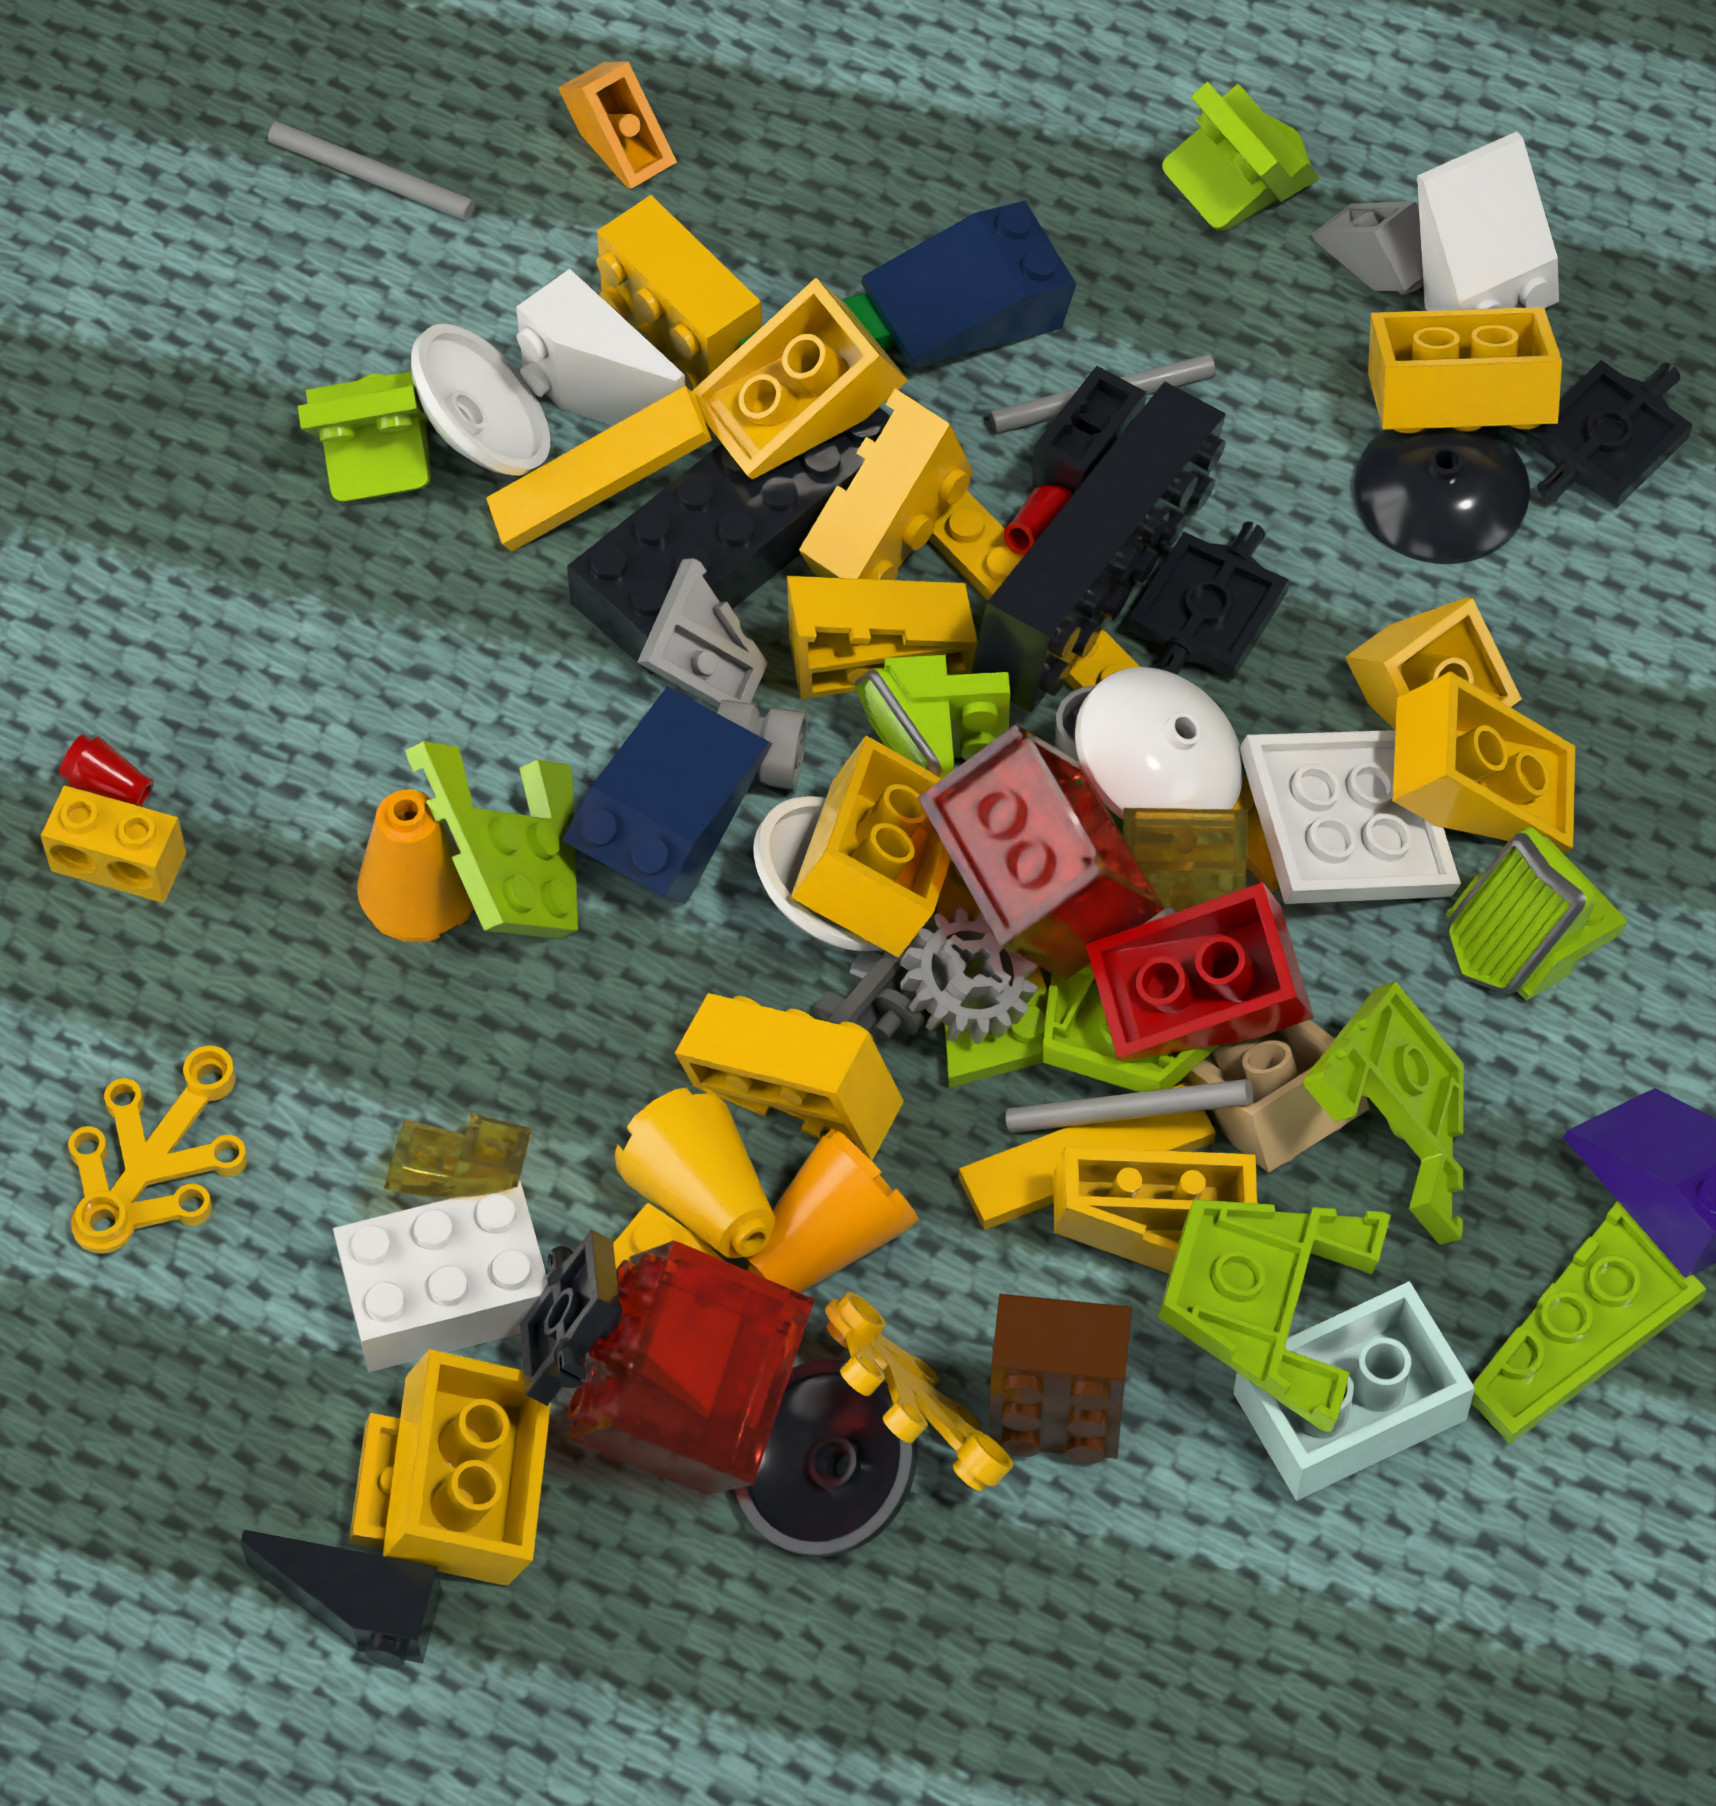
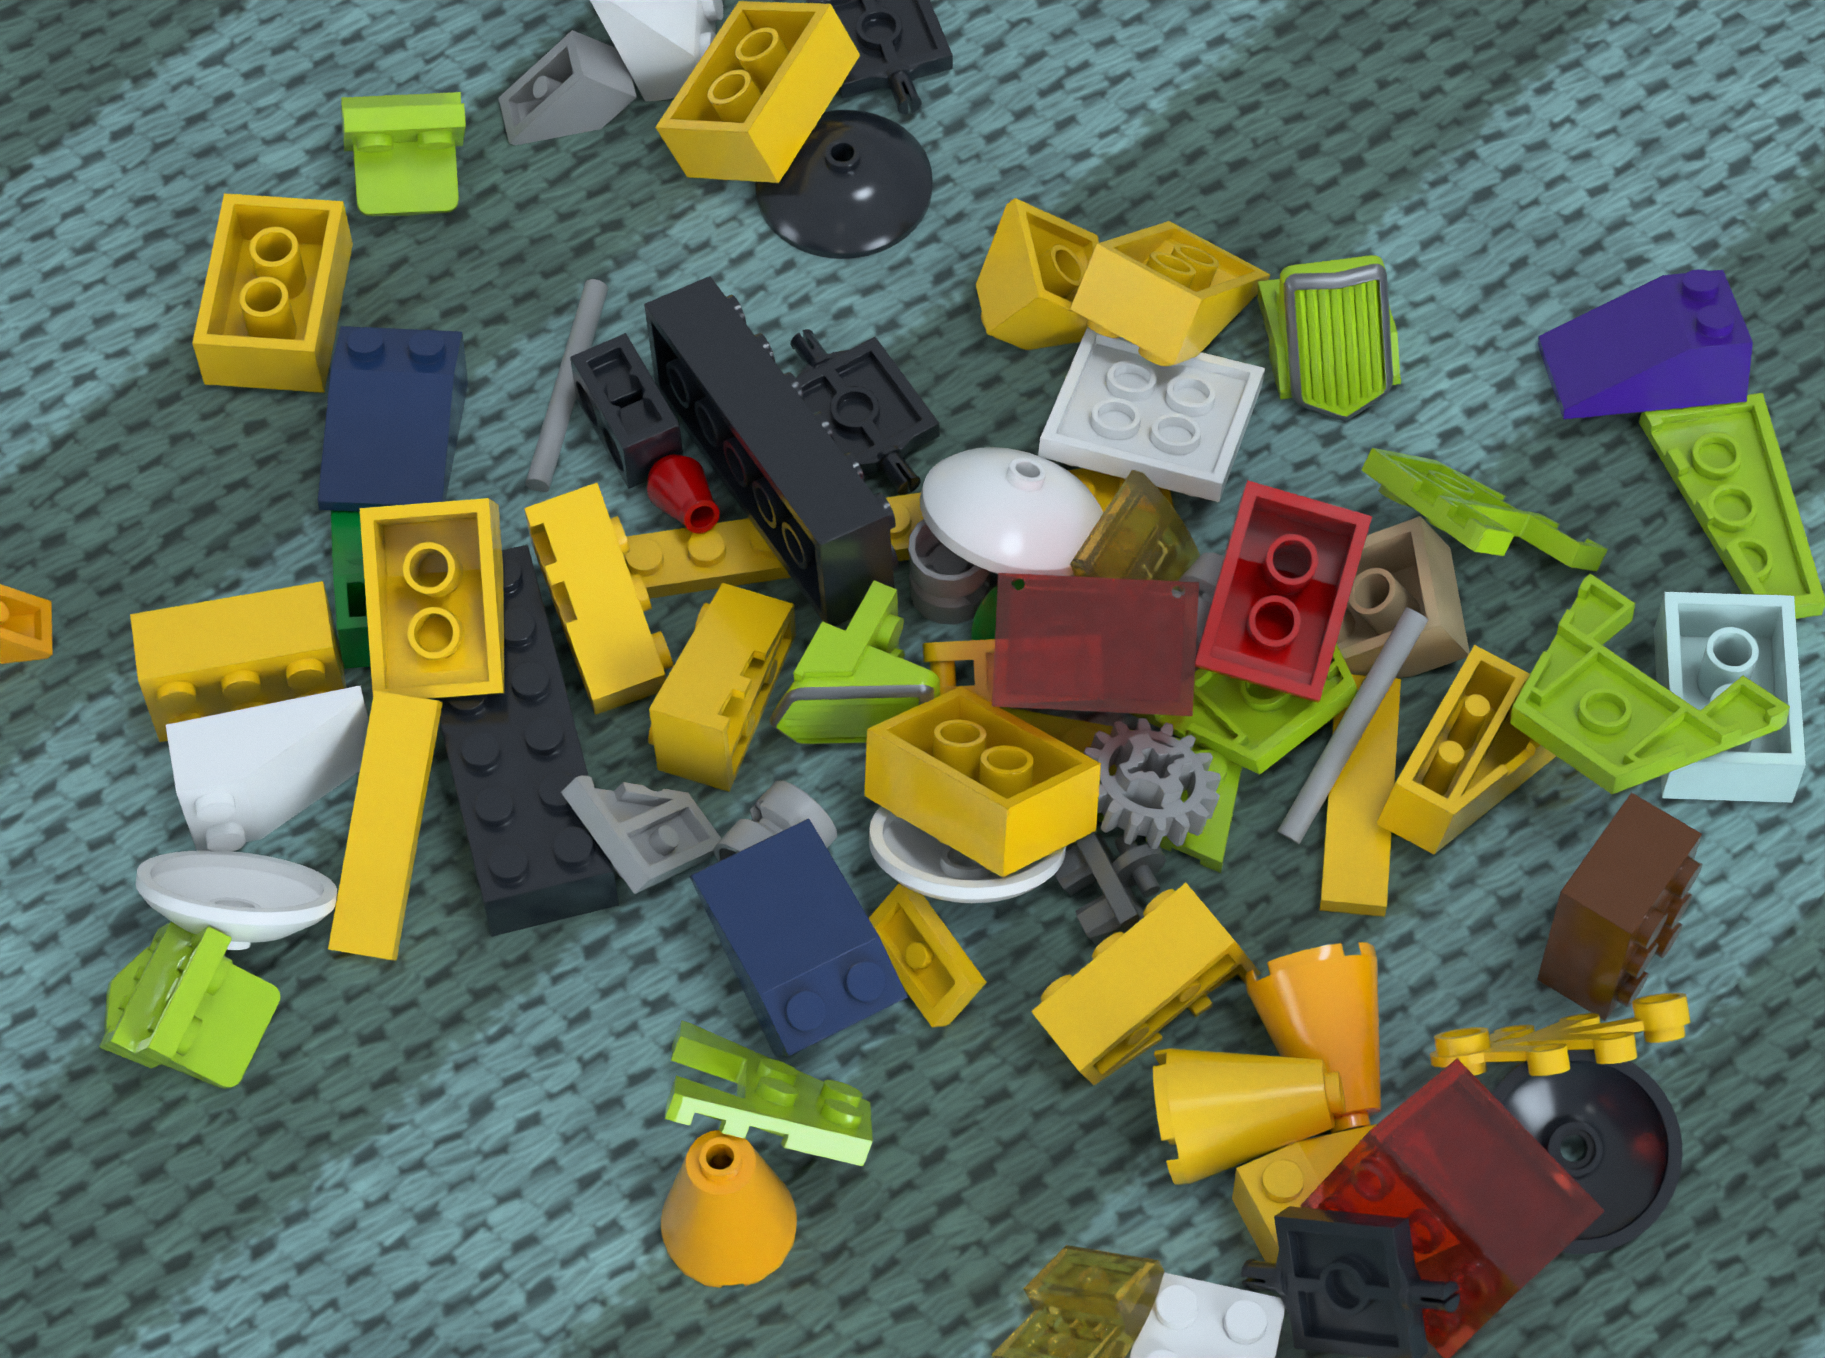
camera: 60 degrees left, 0 degrees up
(721, 906) = (926, 956): none -> yellow plate
(1038, 141) = (273, 293): none -> yellow brick

